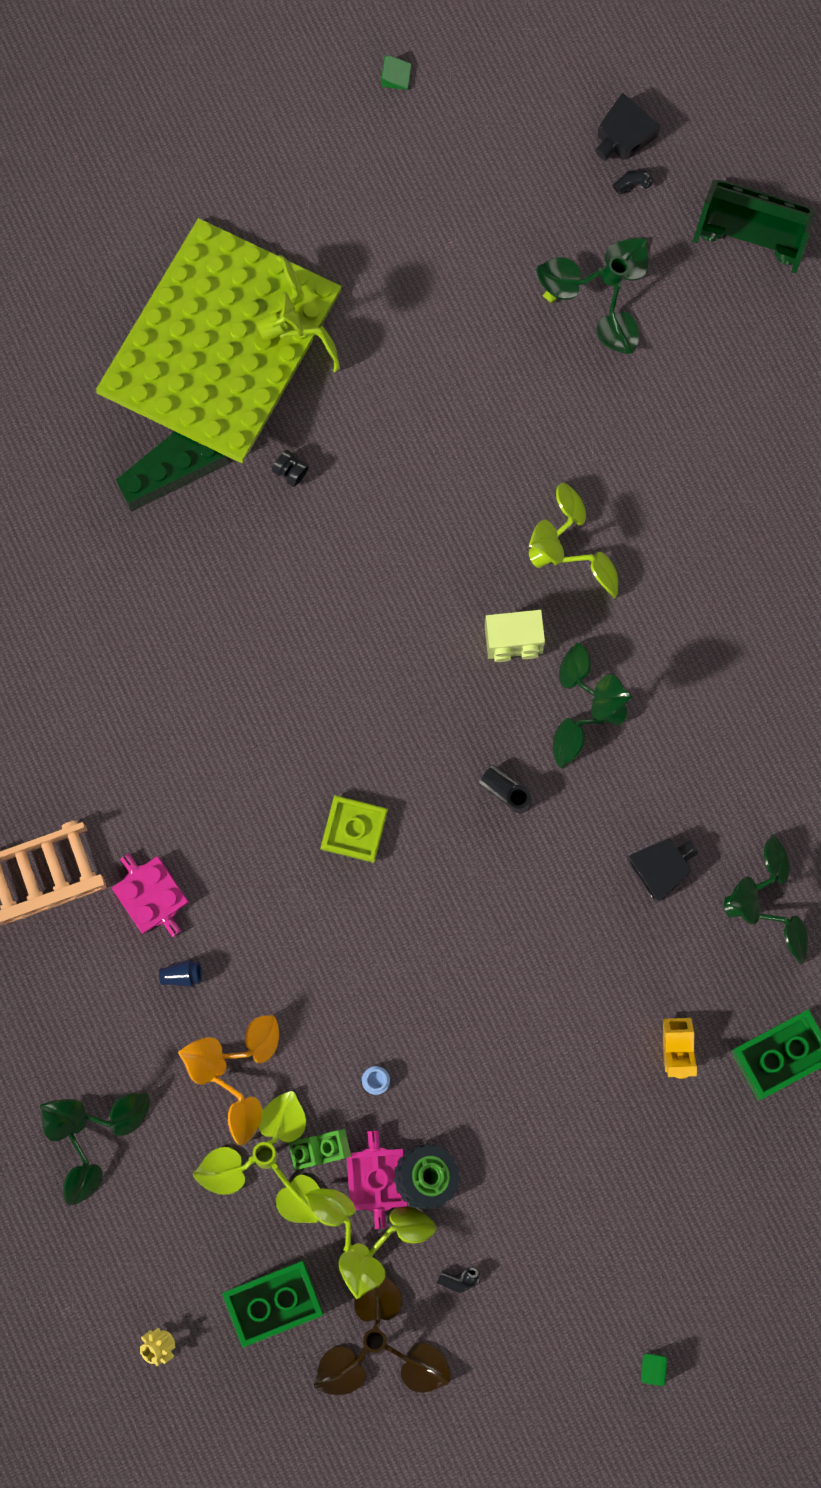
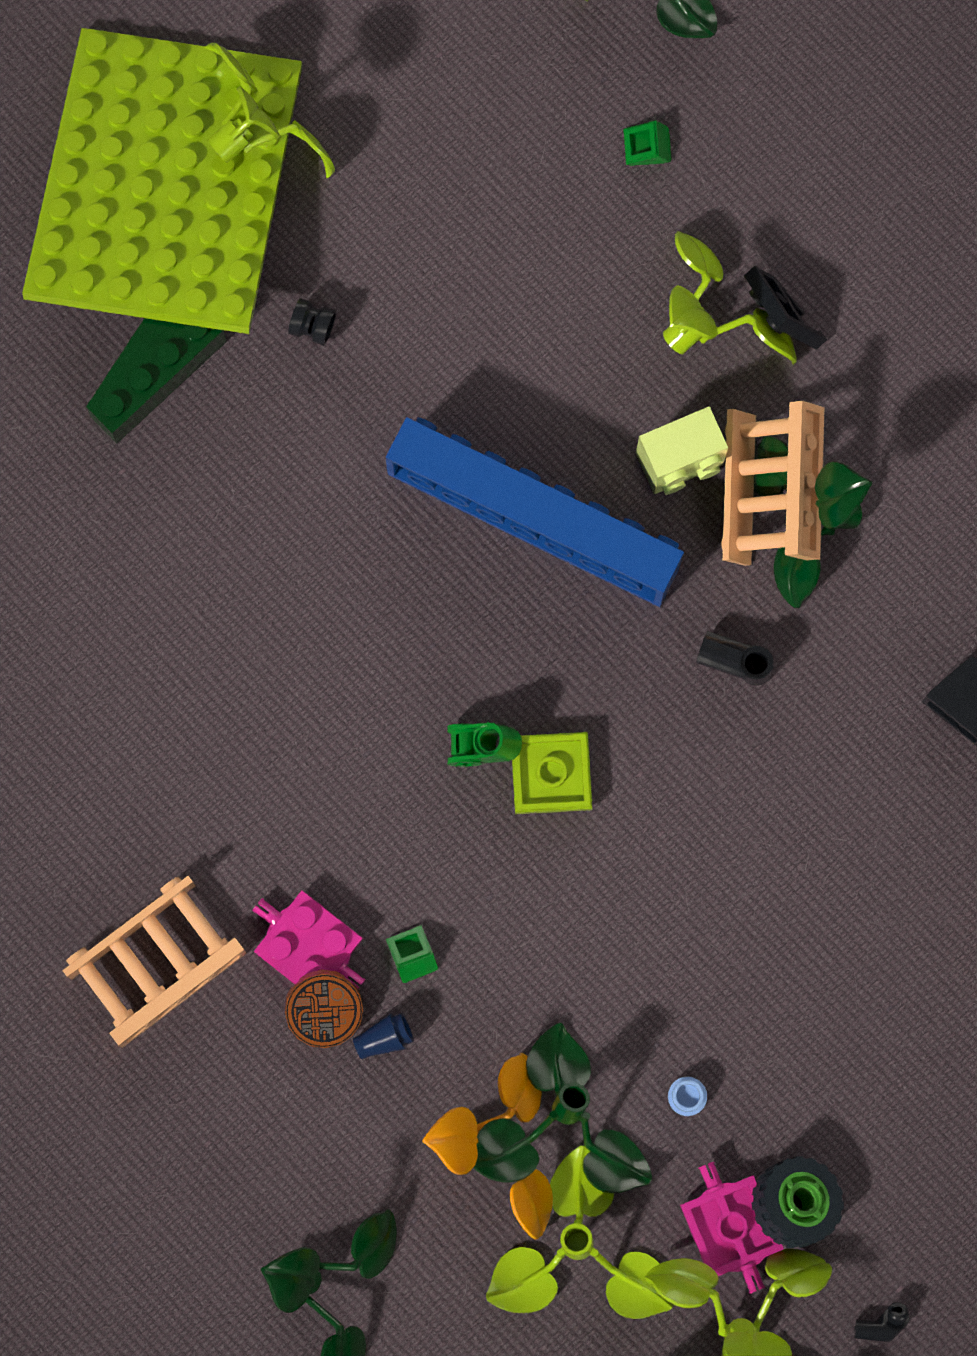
camera: 20 degrees left, 0 degrees up
(146, 942) = (323, 1009): none -> tile
(219, 923) = (412, 954): none -> green slope
(297, 1033) = (561, 1065): none -> dark green plant
(309, 793) = (477, 744): none -> green piece
(319, 1149) = (643, 1211): bright green slope -> none
(399, 645) = (533, 510): none -> blue brick
(562, 415) = (647, 144): none -> green slope
(594, 666) = (802, 465): none -> light nougat fence
(616, 557) = (782, 309): none -> black wing

